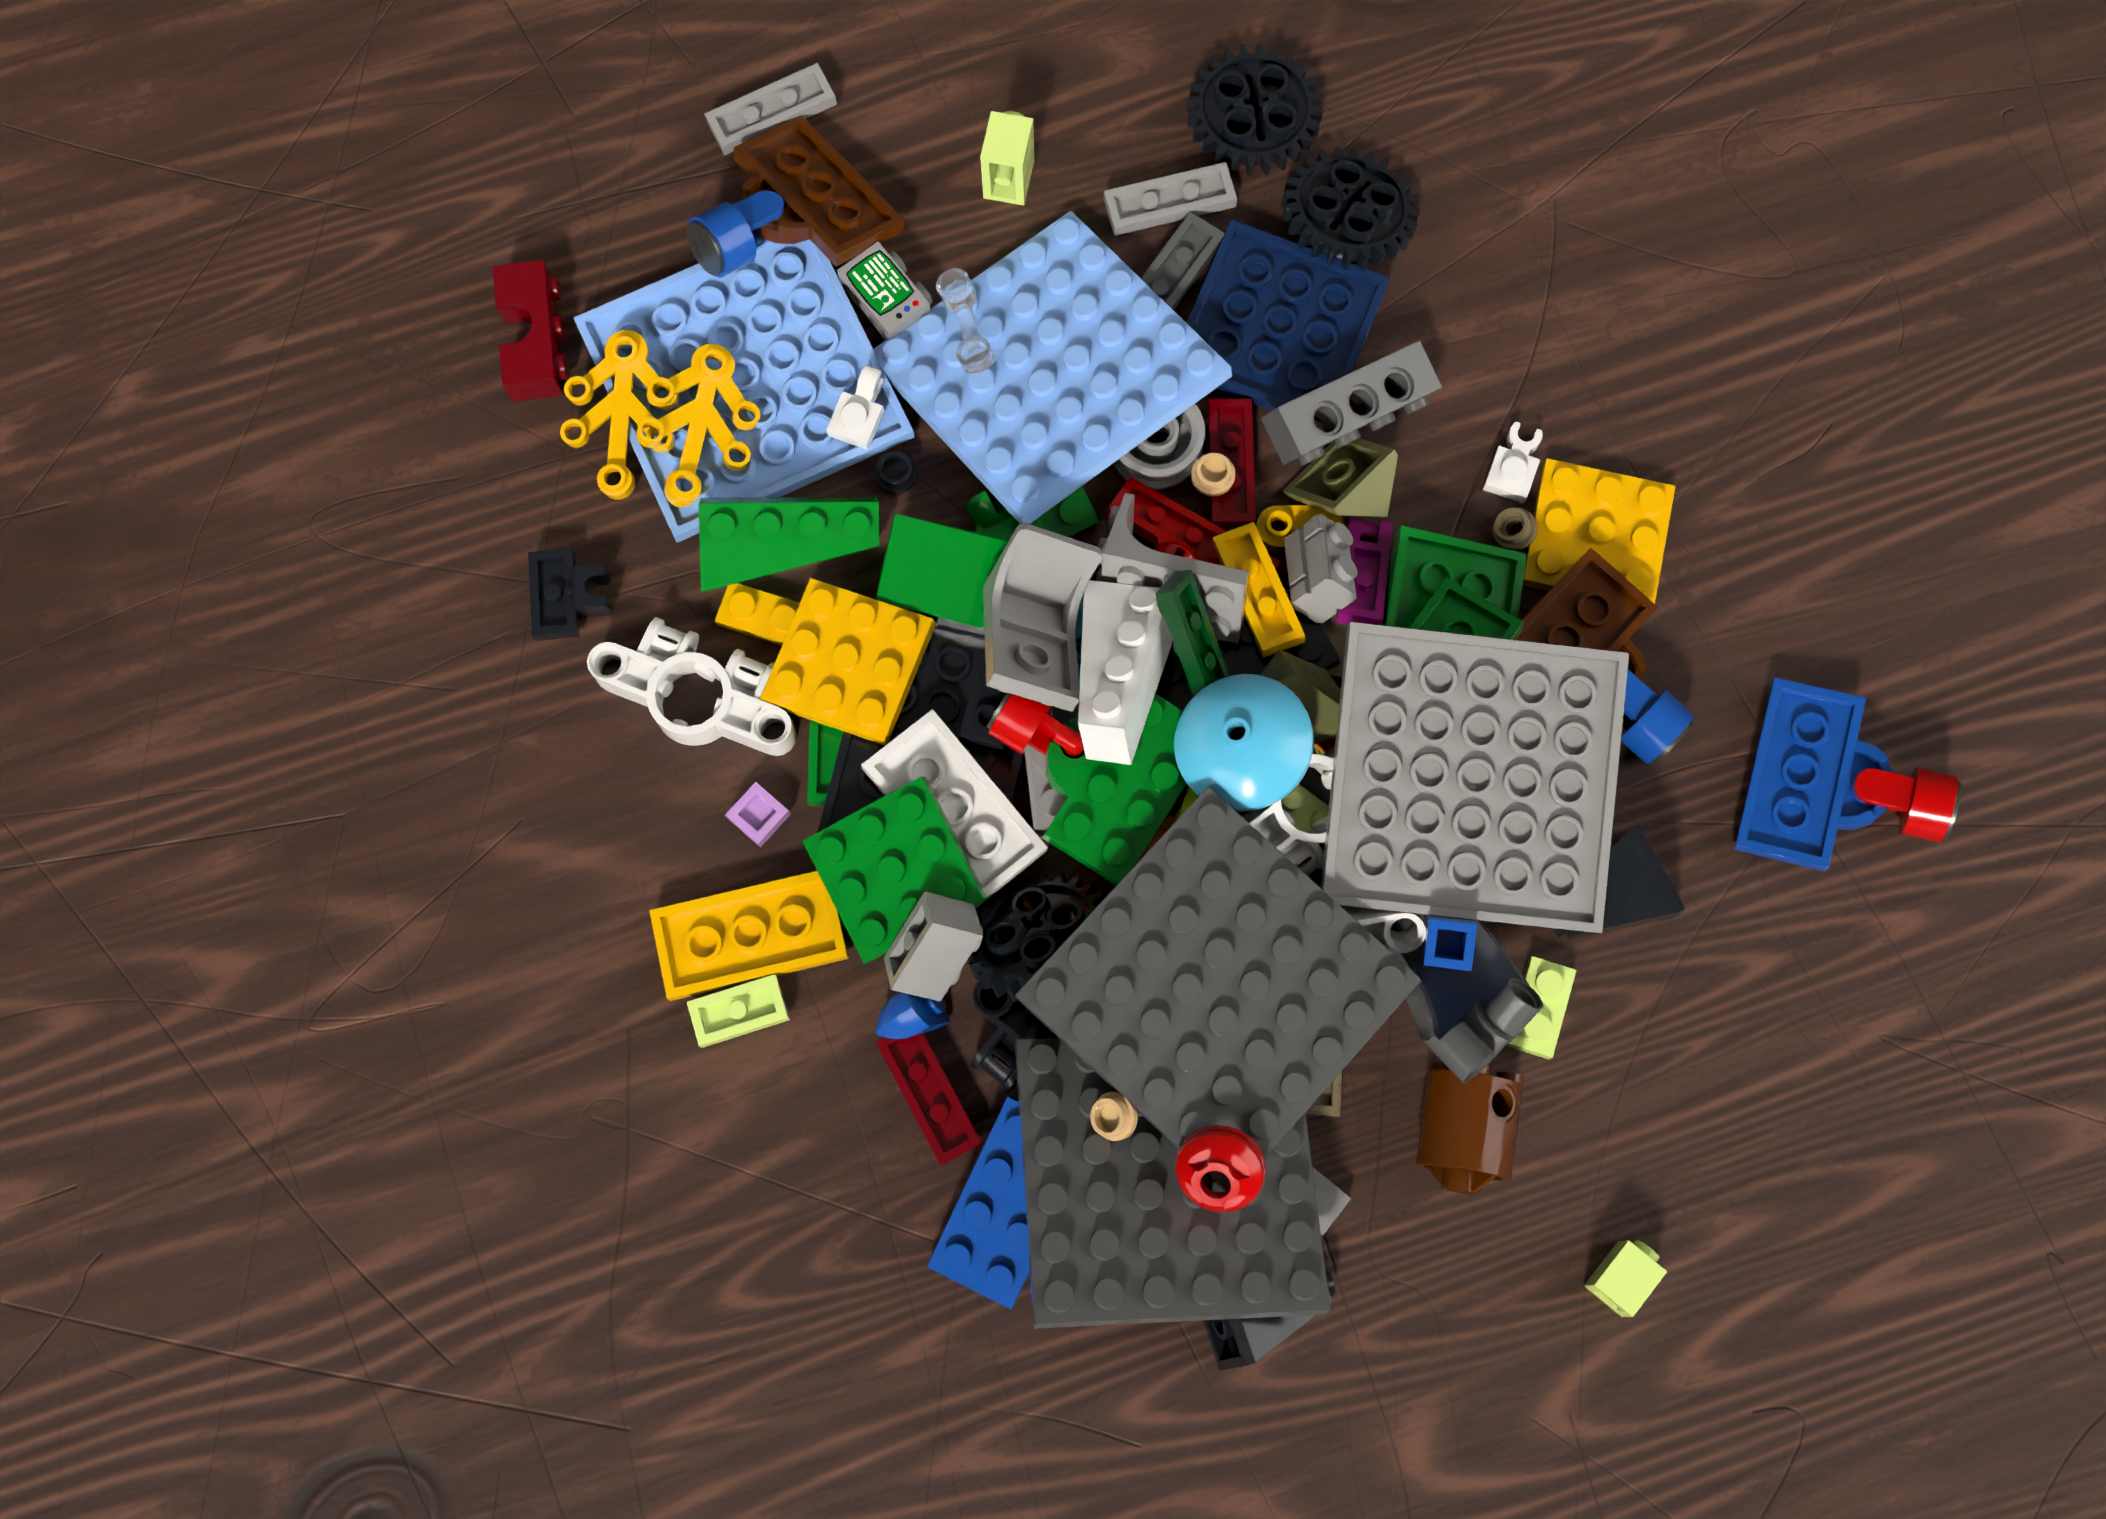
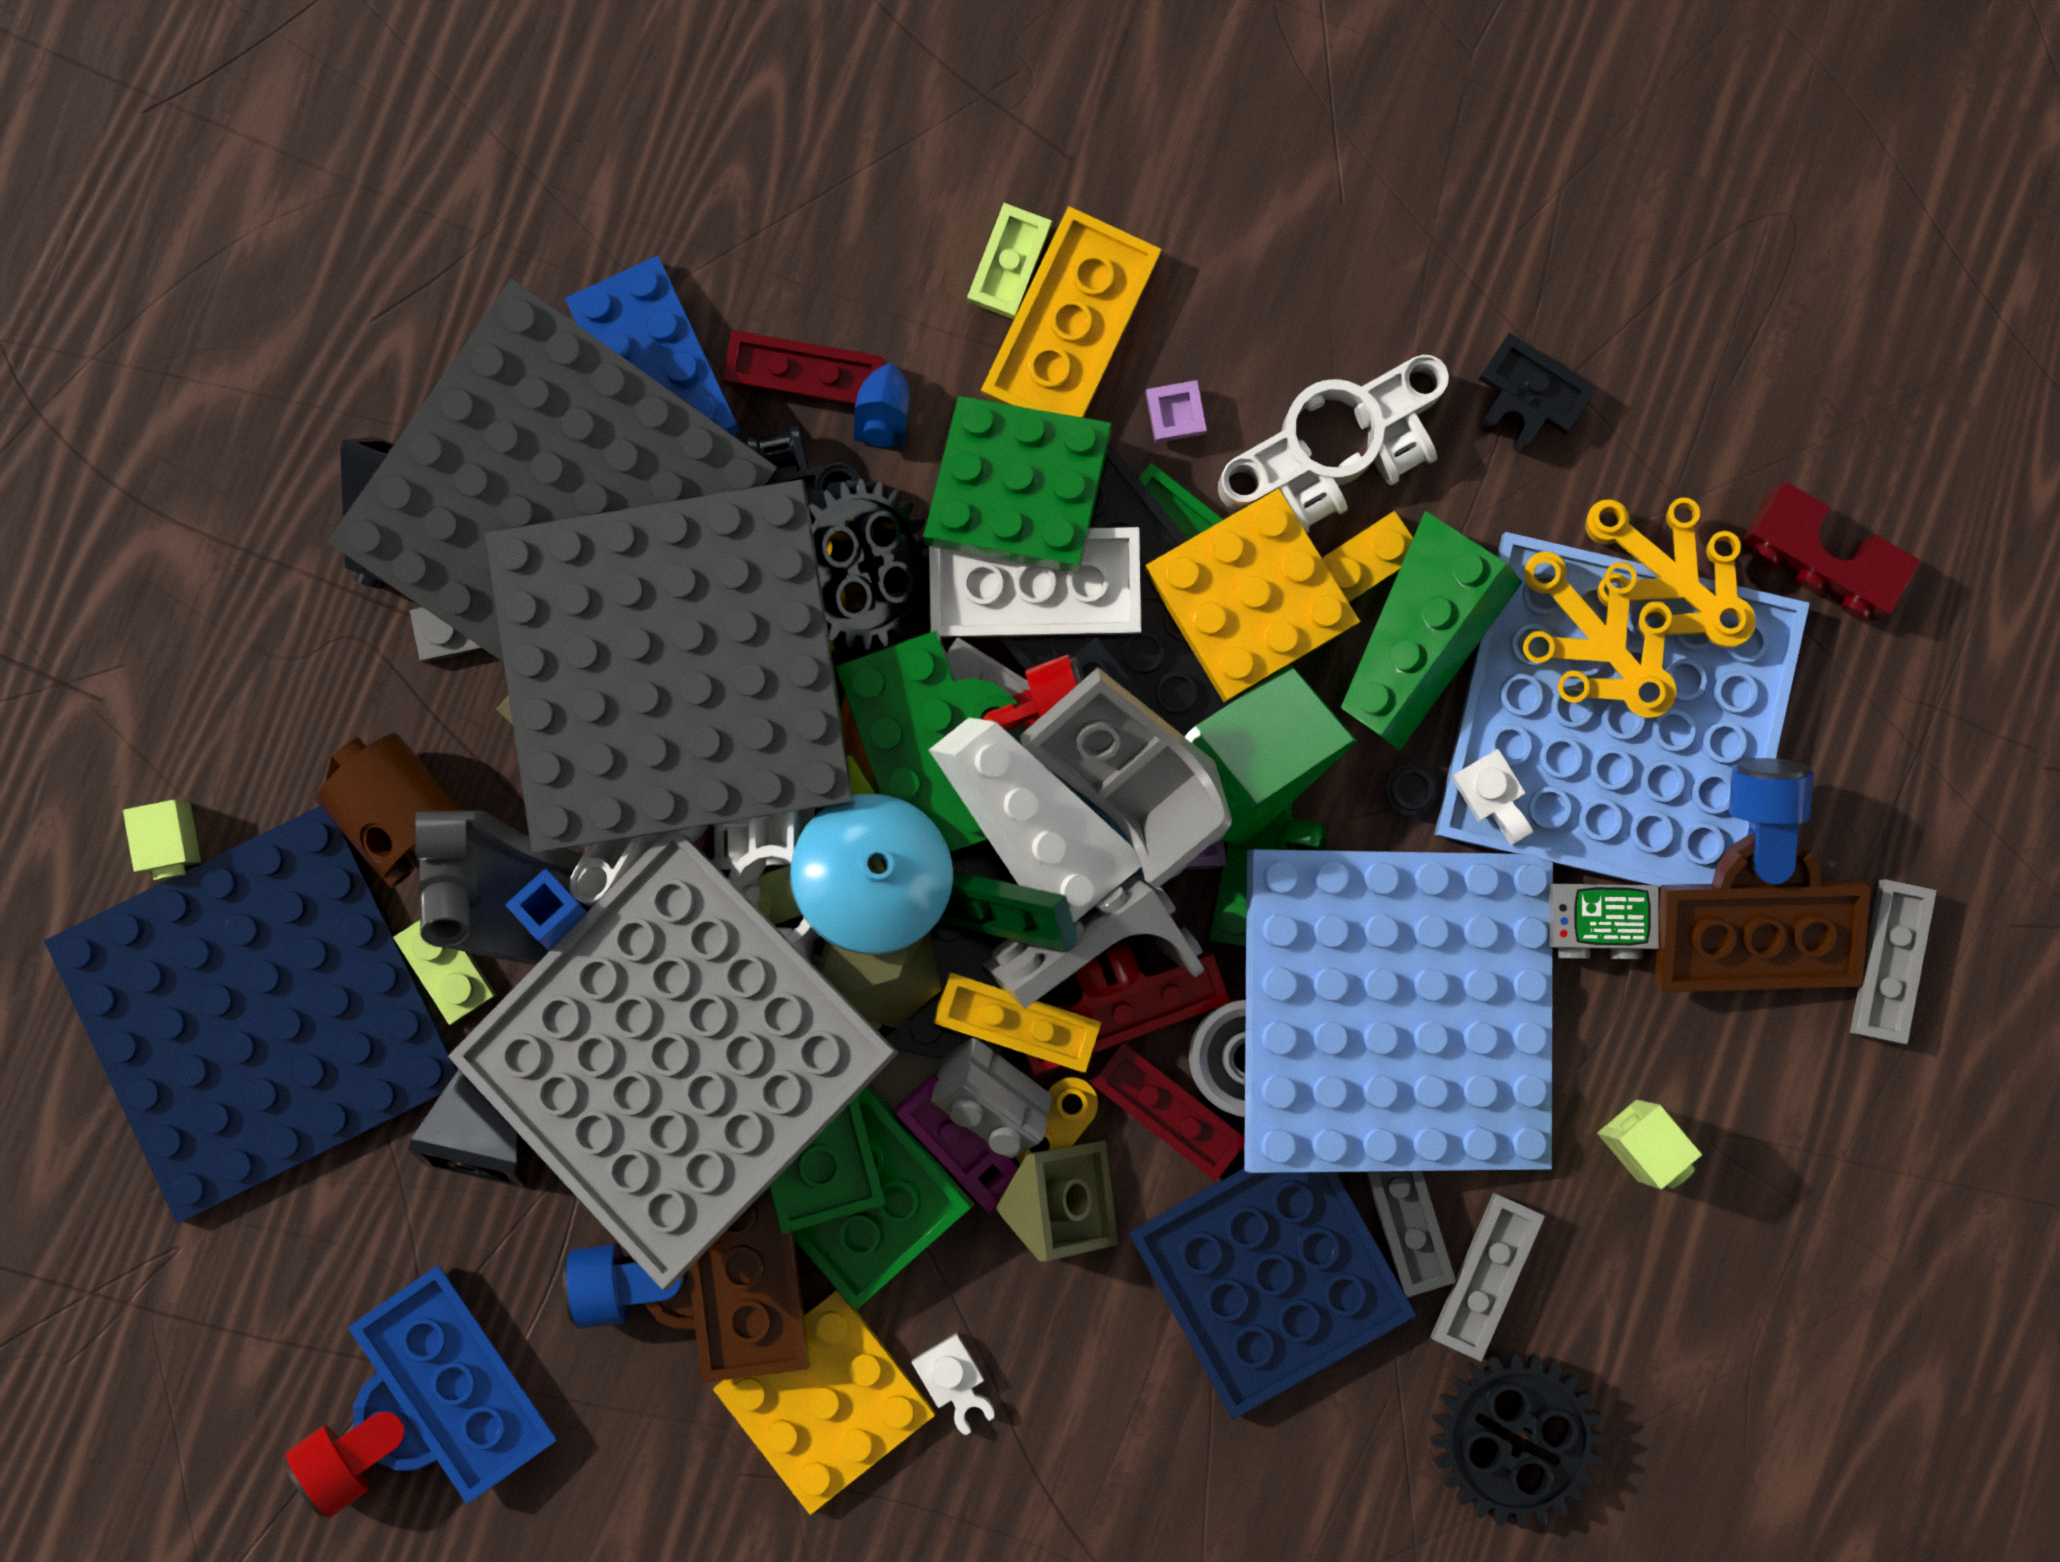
camera: 125 degrees right, 10 degrees up
(933, 946) = (918, 460): light grey brick -> none
(959, 297) = (1538, 981): clear bar -> none
(1114, 1116) = (633, 486): tan plate -> none
(1213, 474) = (1166, 1078): tan plate -> none
(1224, 1151) = (515, 546): red piece -> none
(1371, 228) = (1291, 1457): black gear -> none
(1404, 371) = (1154, 1191): brick -> none
(1509, 519) = (901, 1314): dark tan plate -> none
(1684, 1116) = (253, 1012): none -> dark blue plate

